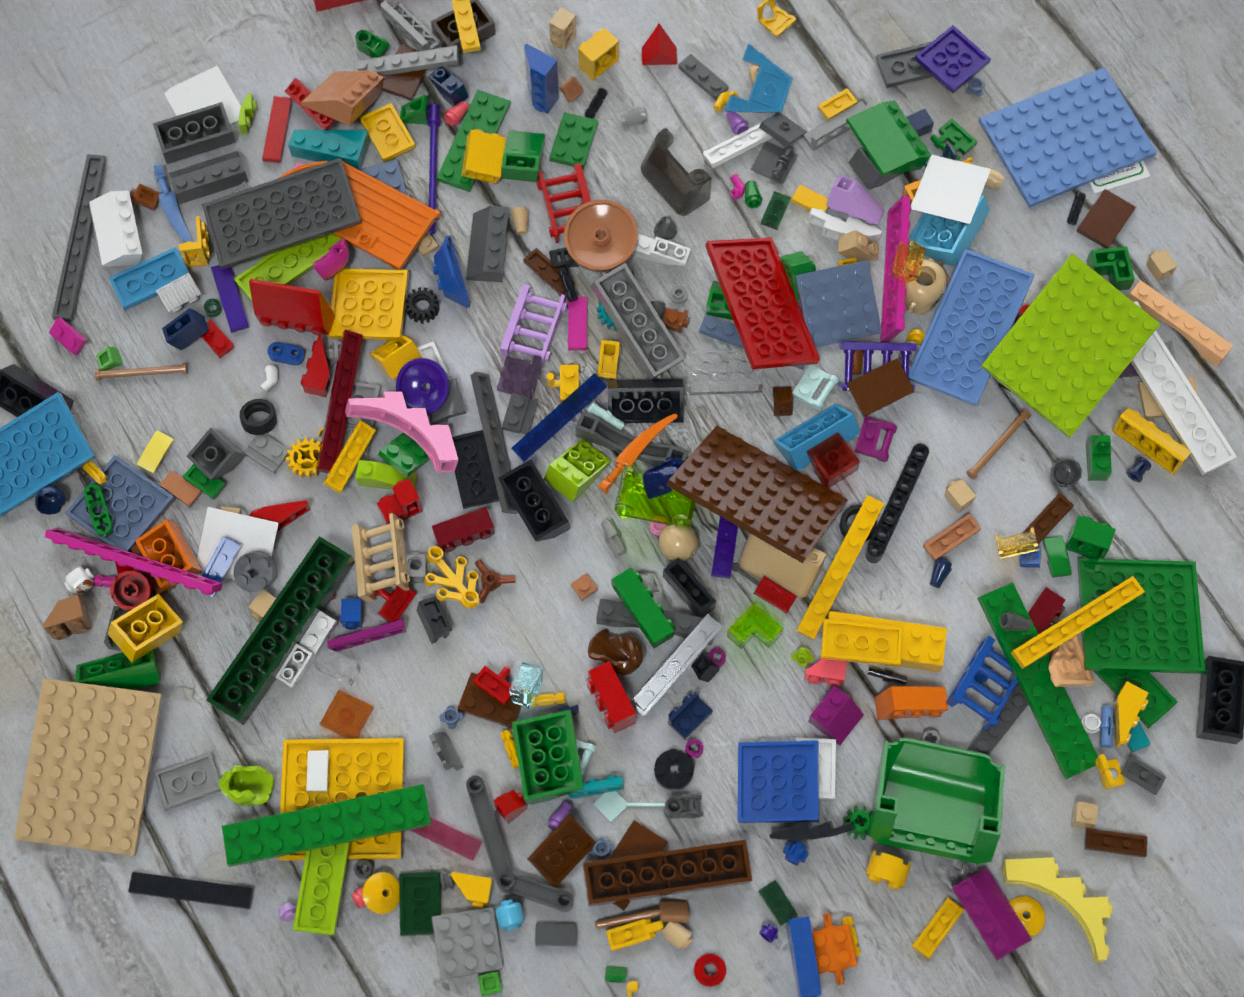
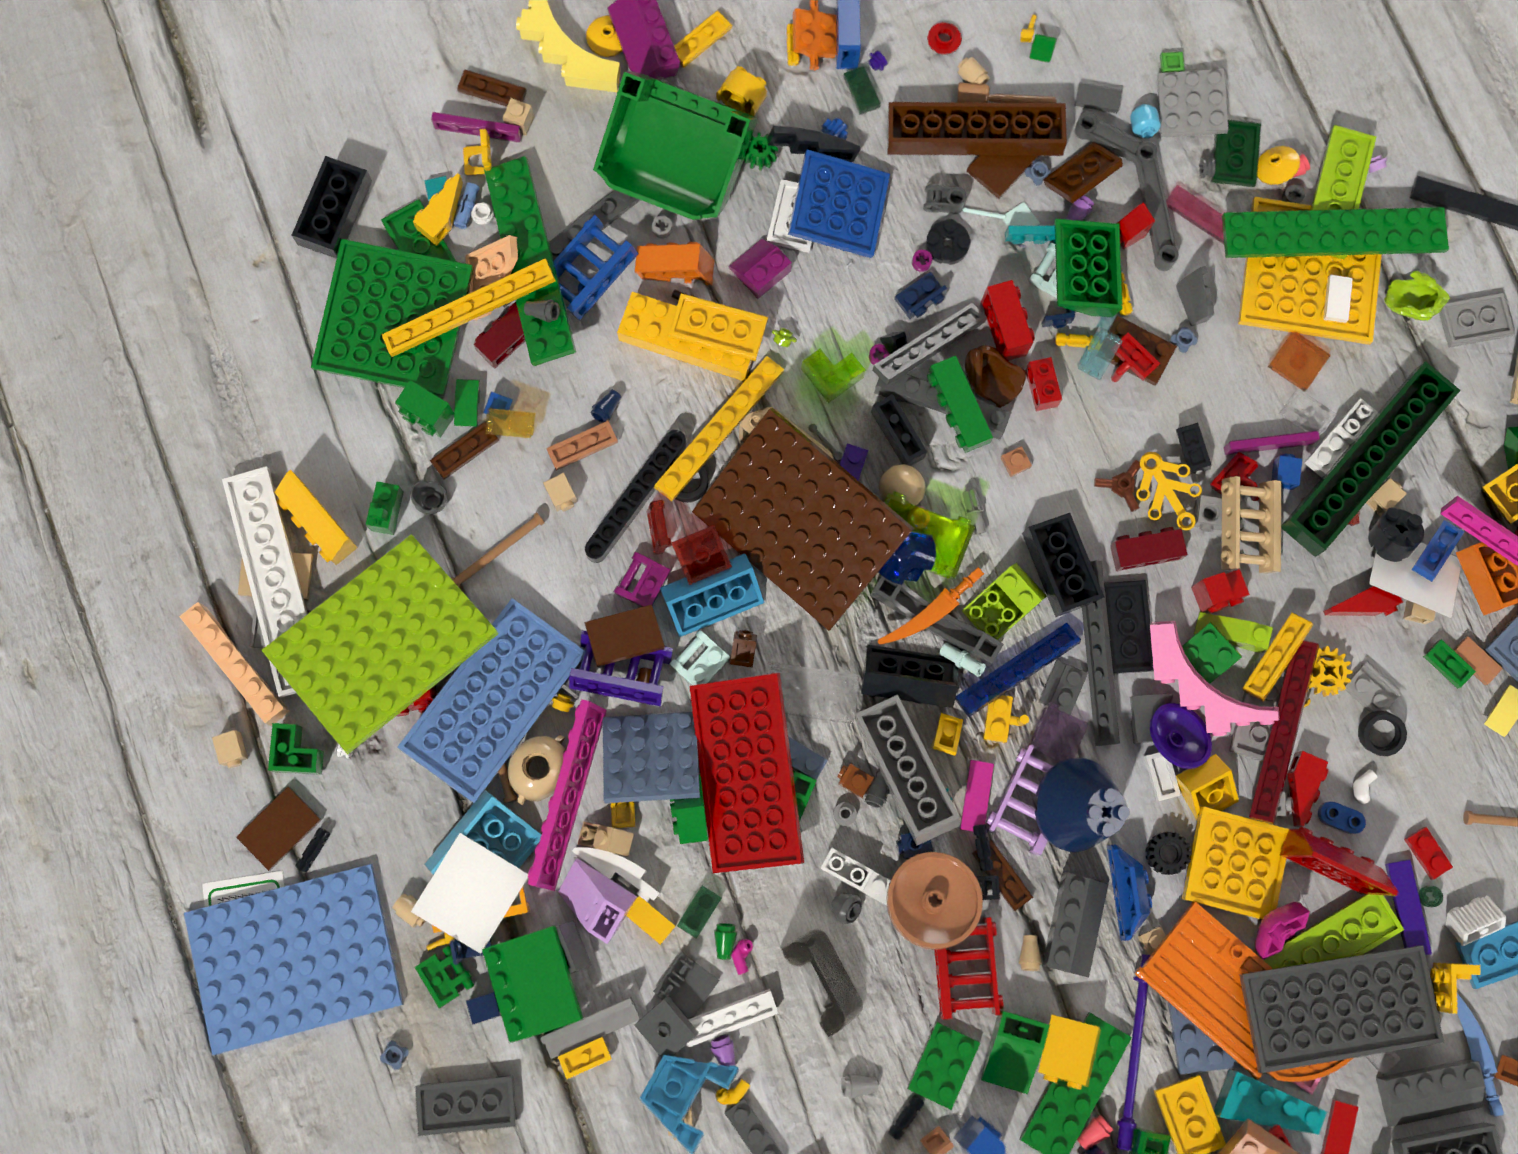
camera: 175 degrees left, 10 degrees up
(185, 329) = (1469, 862): dark blue brick -> none
(215, 454) = (1435, 691): dark grey slope -> none
(474, 888) = (1180, 154): yellow slope -> none
(496, 320) = (1079, 805): none -> dark blue cone
(570, 652) = (1043, 384): none -> red brick
(633, 933) = (1019, 83): yellow hinge -> none
(775, 594) = (800, 413): red plate -> none
(828, 672) = (774, 312): coral slope -> none
(869, 472) = (658, 527): none -> clear red plate
(908, 261) = (552, 787): clear yellow hinge -> none
(952, 59) = (415, 1096): dark purple plate -> none
(1121, 799) = (472, 127): none -> magenta tile
(1139, 469) = (341, 489): dark blue bush -> none
(1143, 775) = (442, 149): dark grey plate -> none

